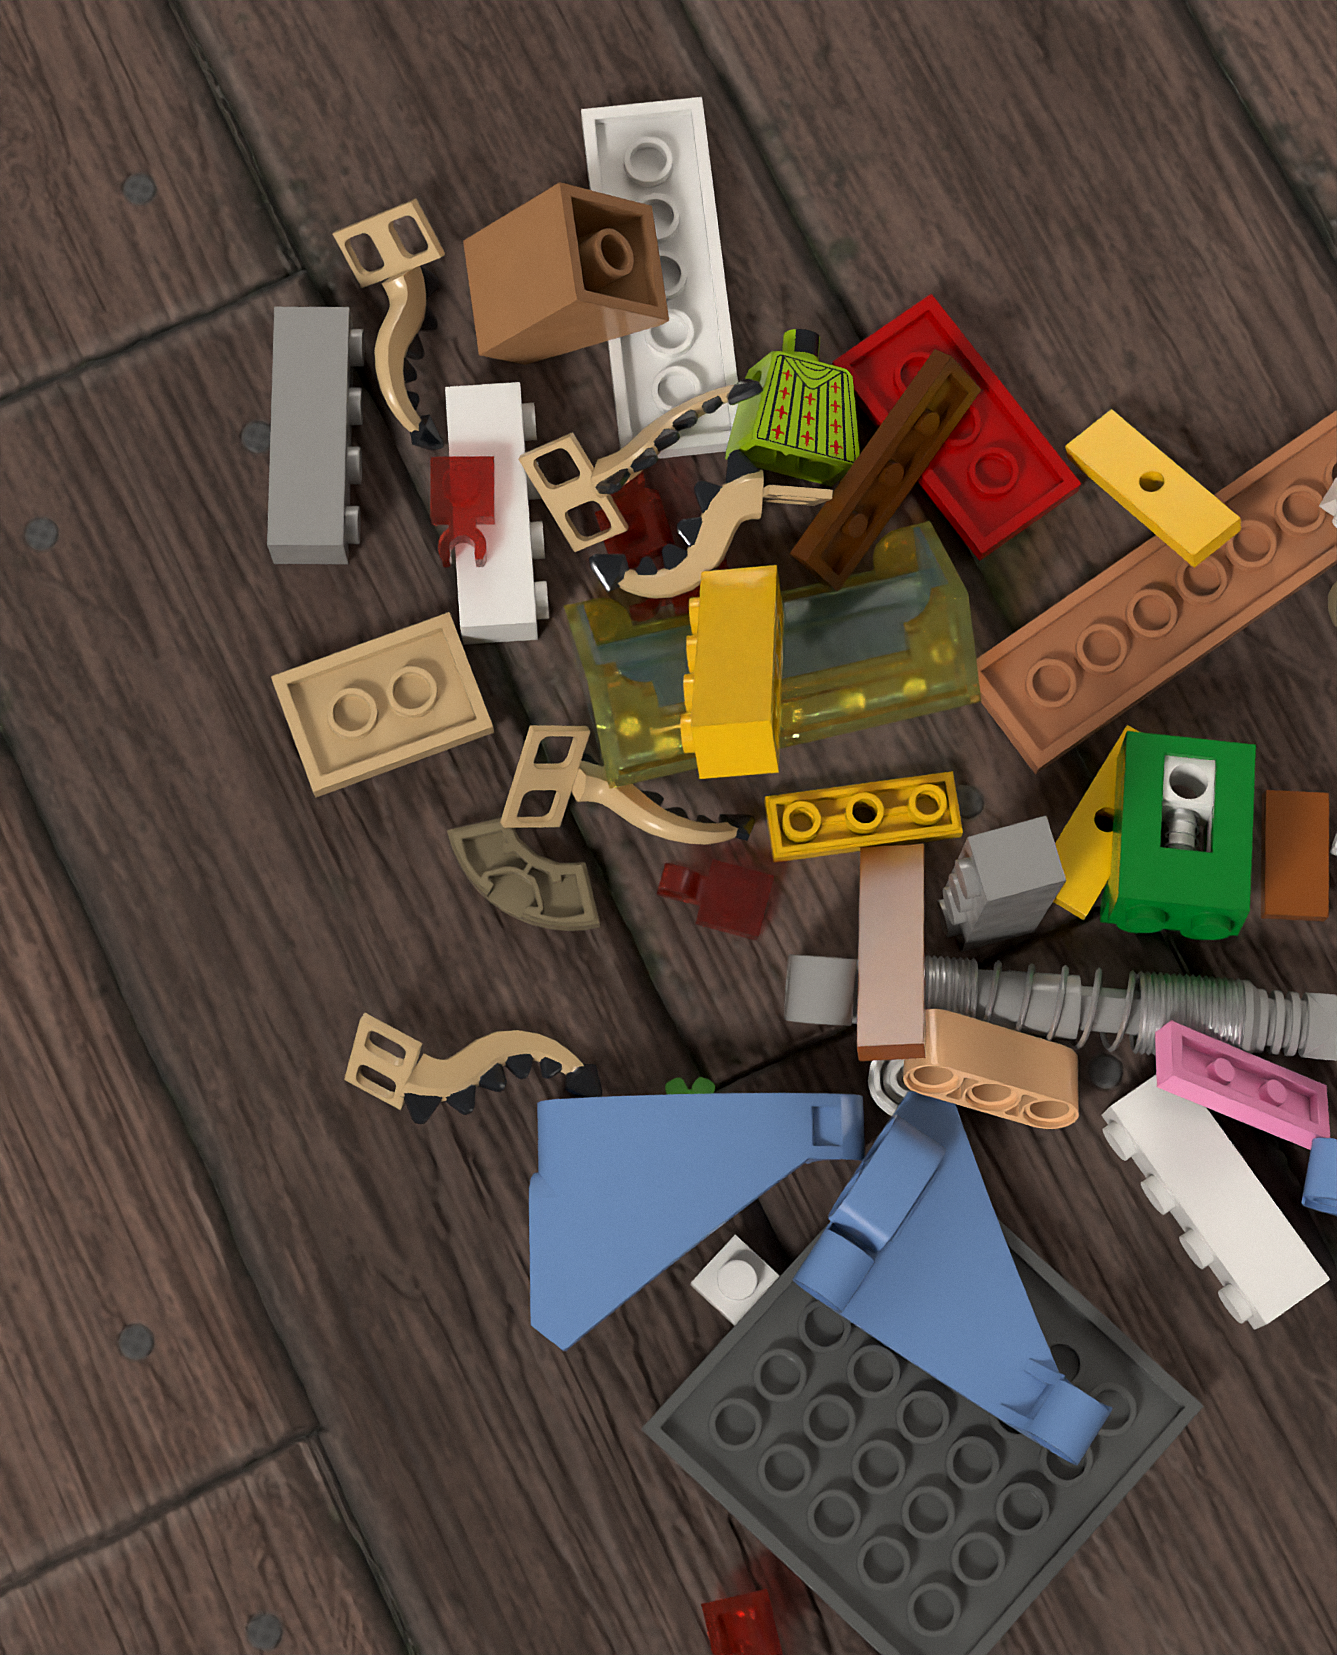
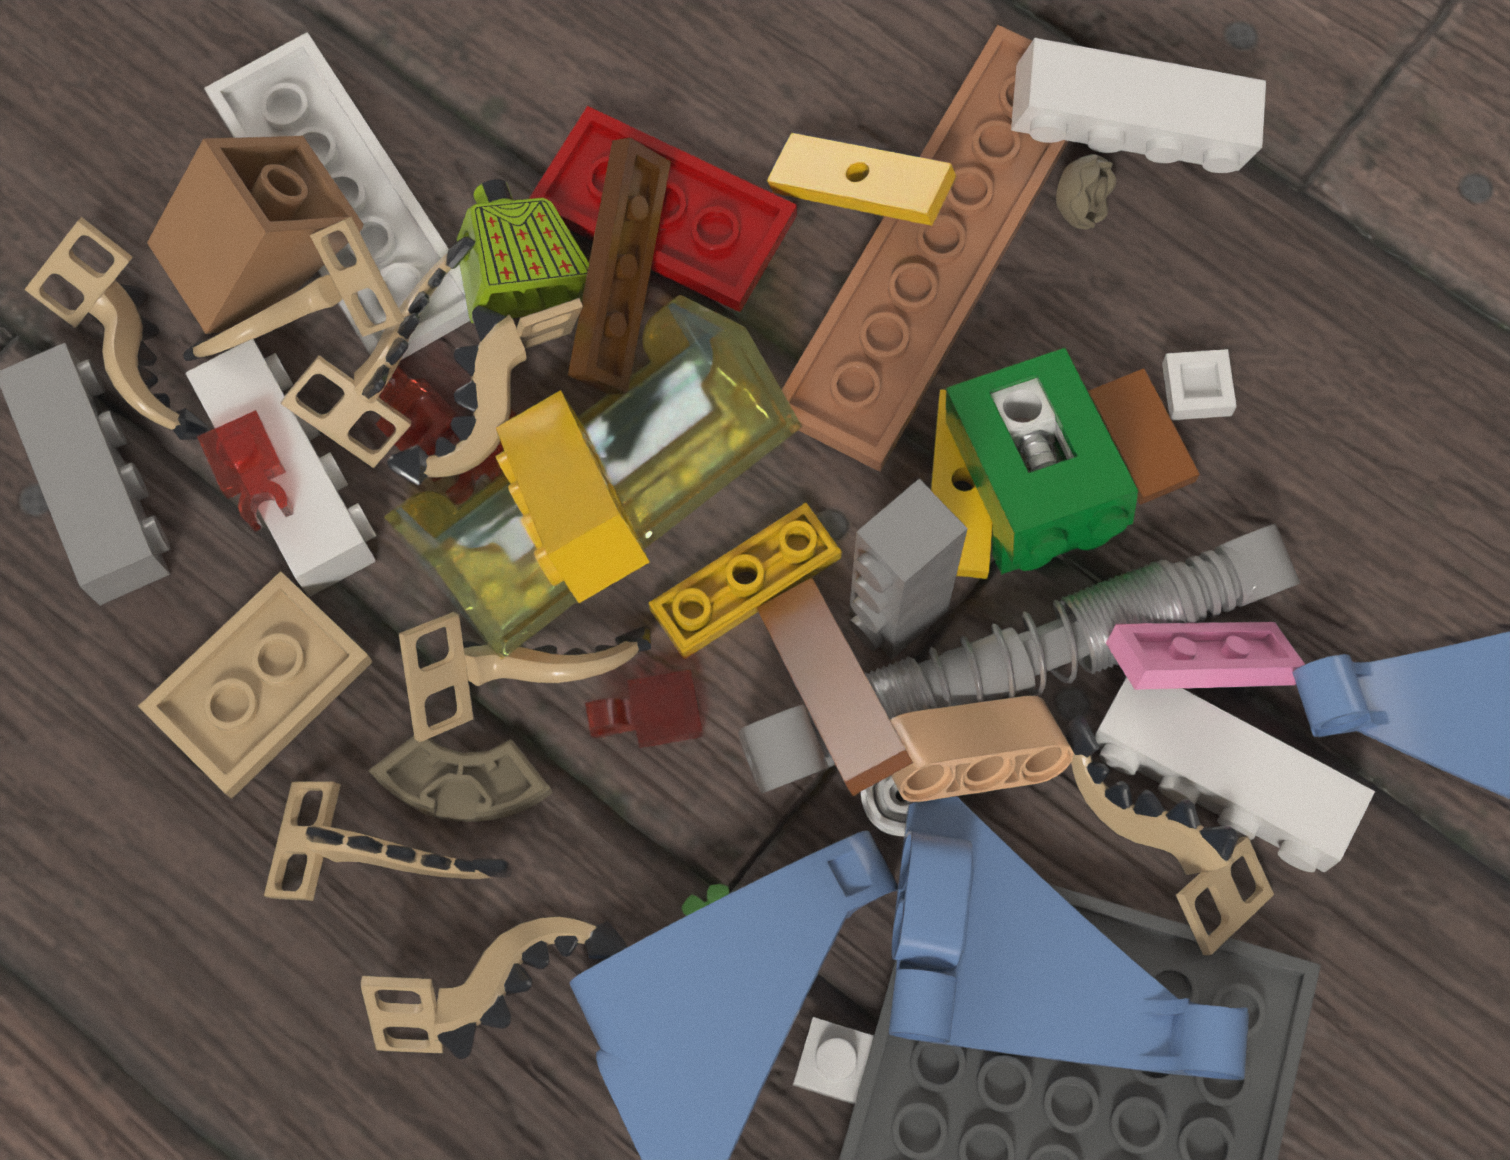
camera: 20 degrees left, 5 degrees down
(396, 888) = (347, 846): none -> tan piece
(597, 371) = (320, 294): none -> tan piece
(1135, 1229) = (1177, 831): none -> tan piece

